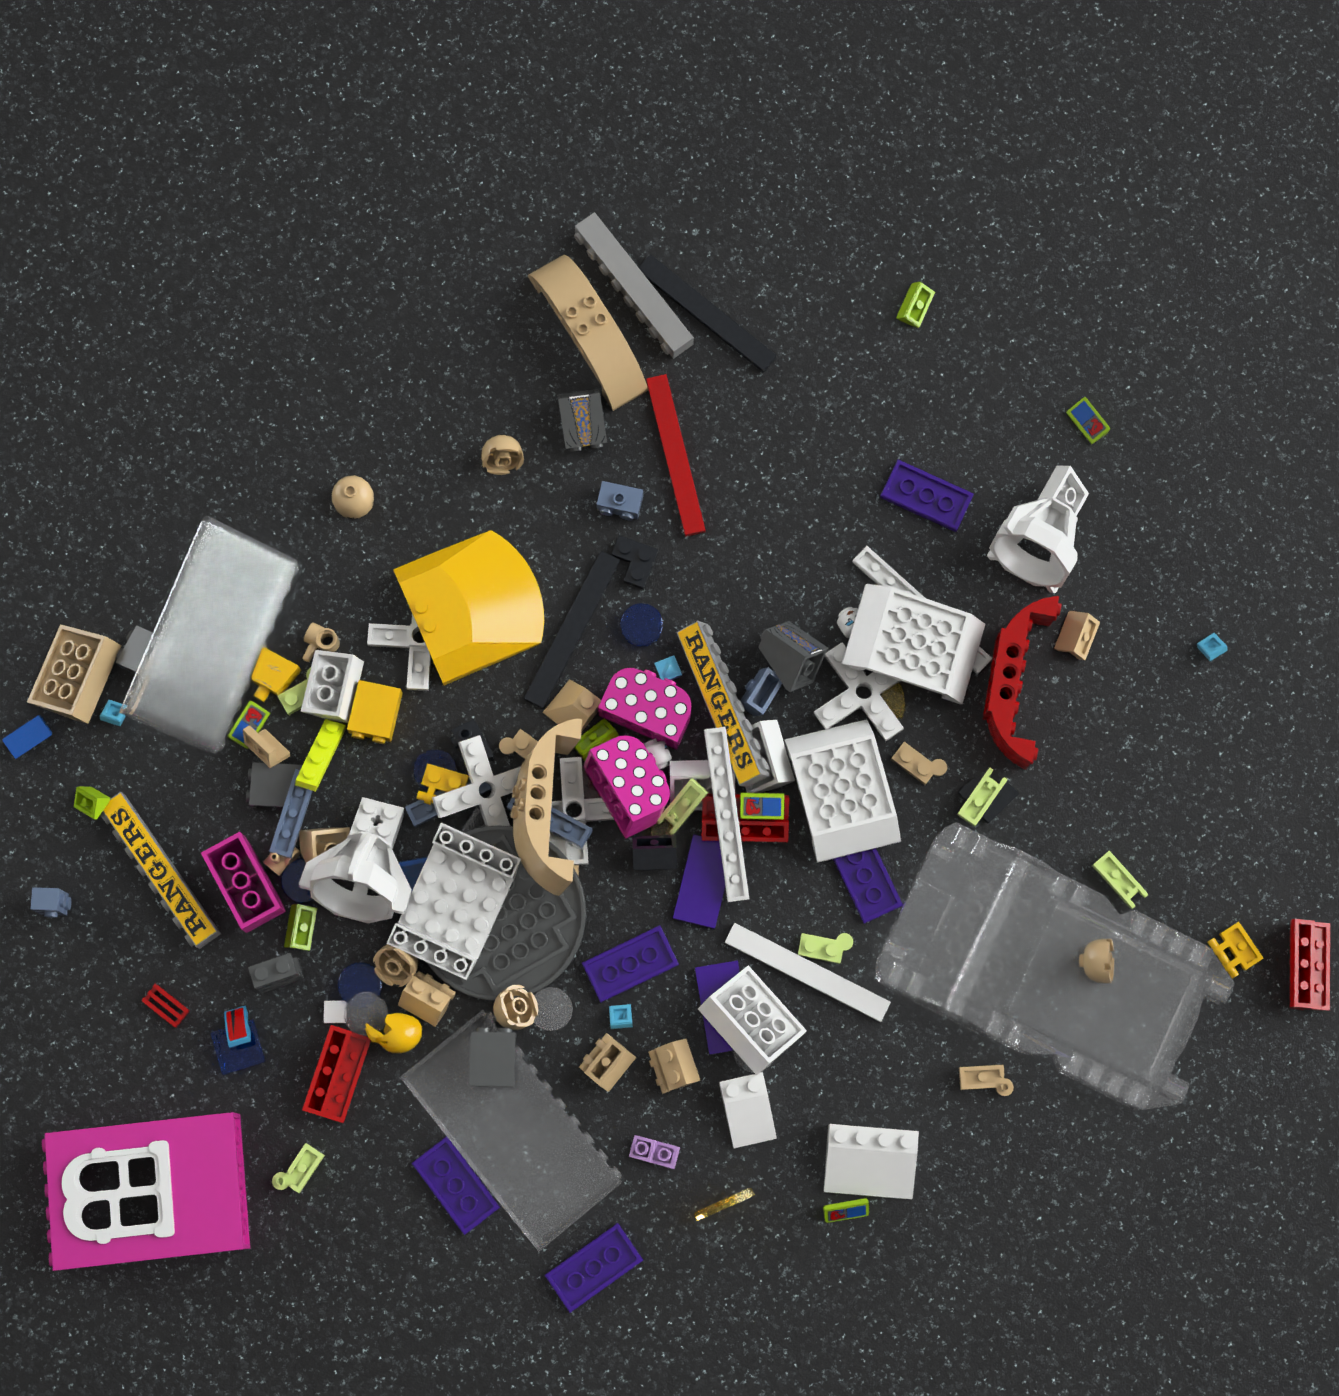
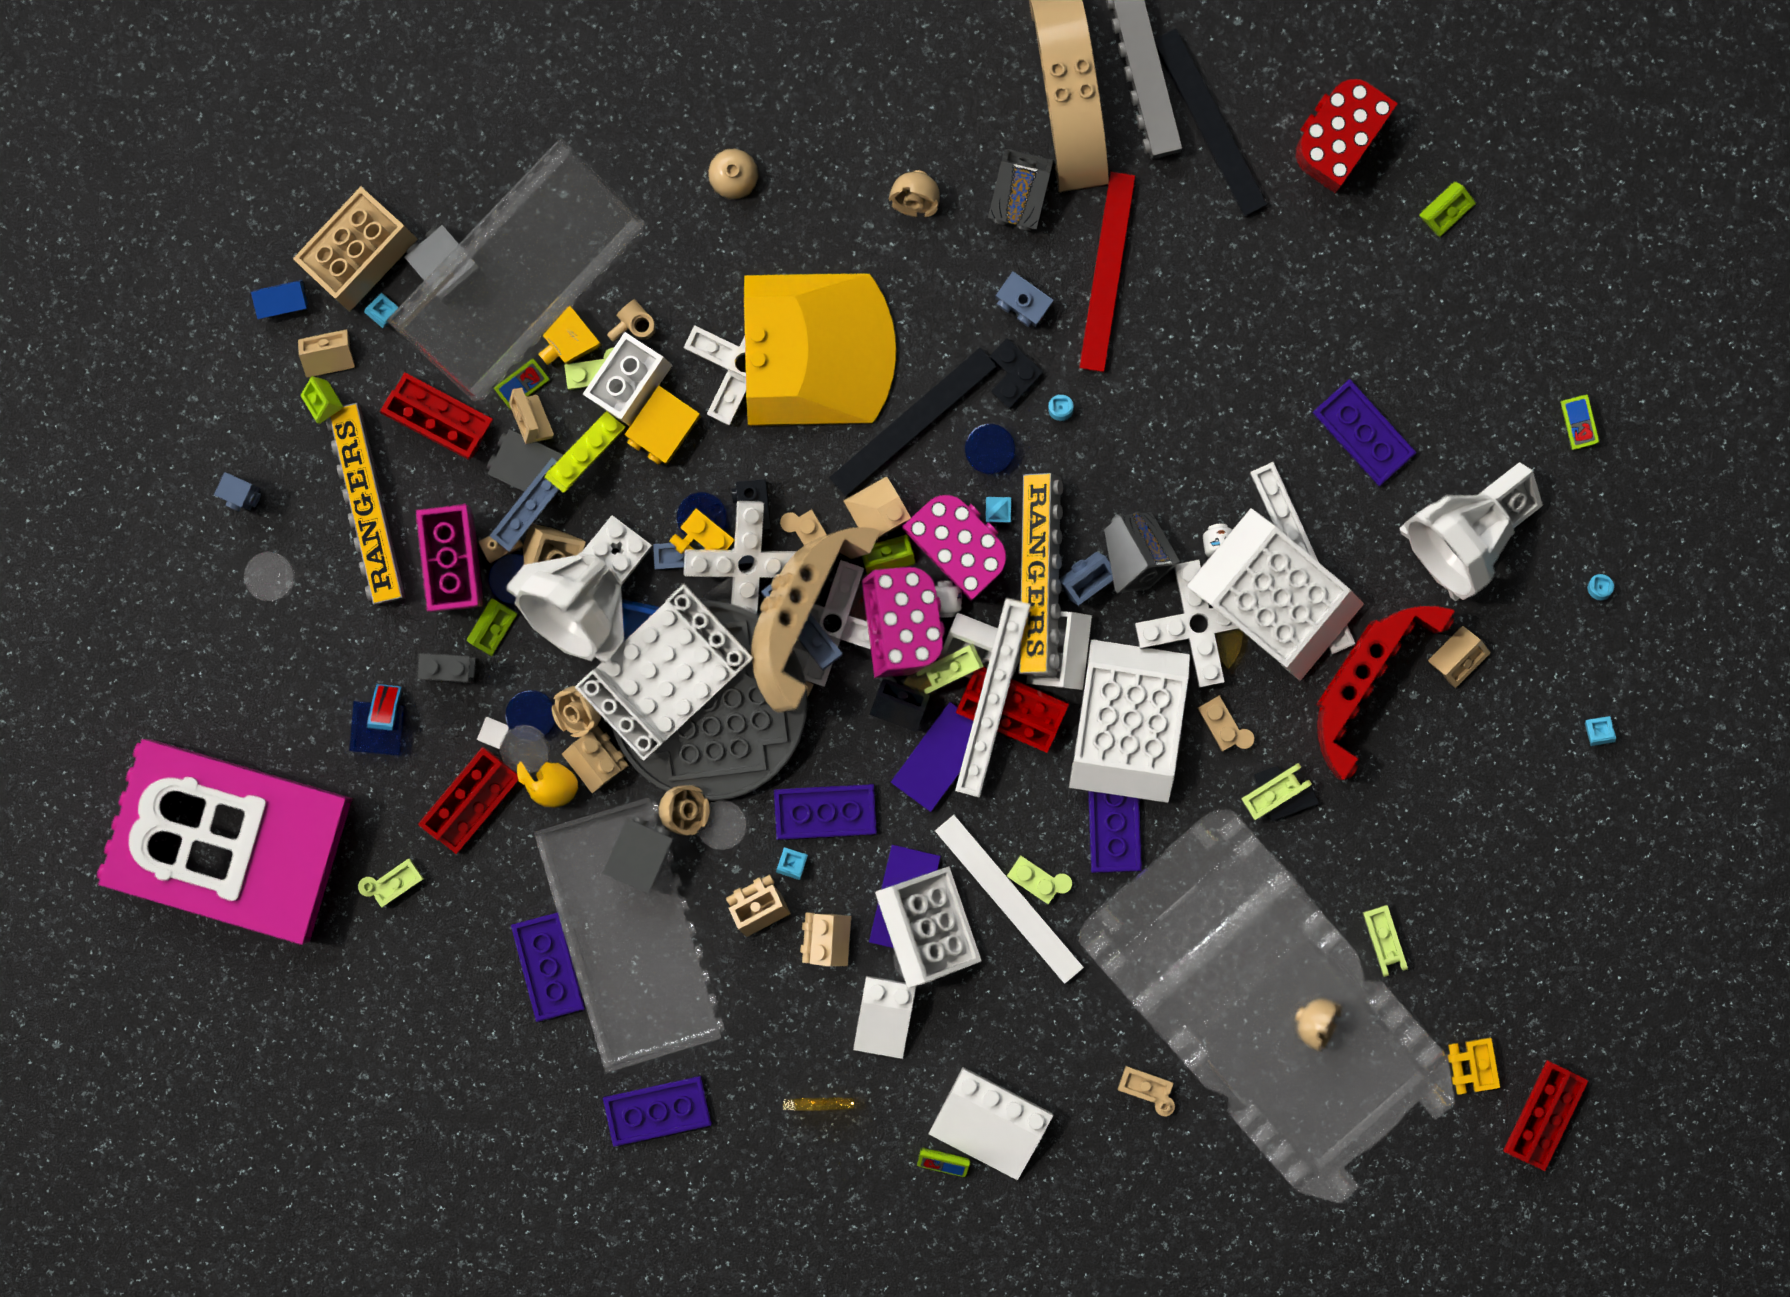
camera: 25 degrees right, 10 degrees up
(81, 765) = (325, 353): none -> tan panel
(102, 961) = (269, 576): none -> clear tile
(151, 994) = (328, 670): red tile -> none
(190, 777) = (436, 416): none -> red brick
(654, 1152) = (768, 1019): lavender slope -> none
(683, 571) = (1060, 407): none -> medium azure tile
(762, 806) = (1034, 705): slope -> none
(809, 276) = (1341, 131): none -> red brick
(1161, 537) = (1600, 587): none -> medium azure tile

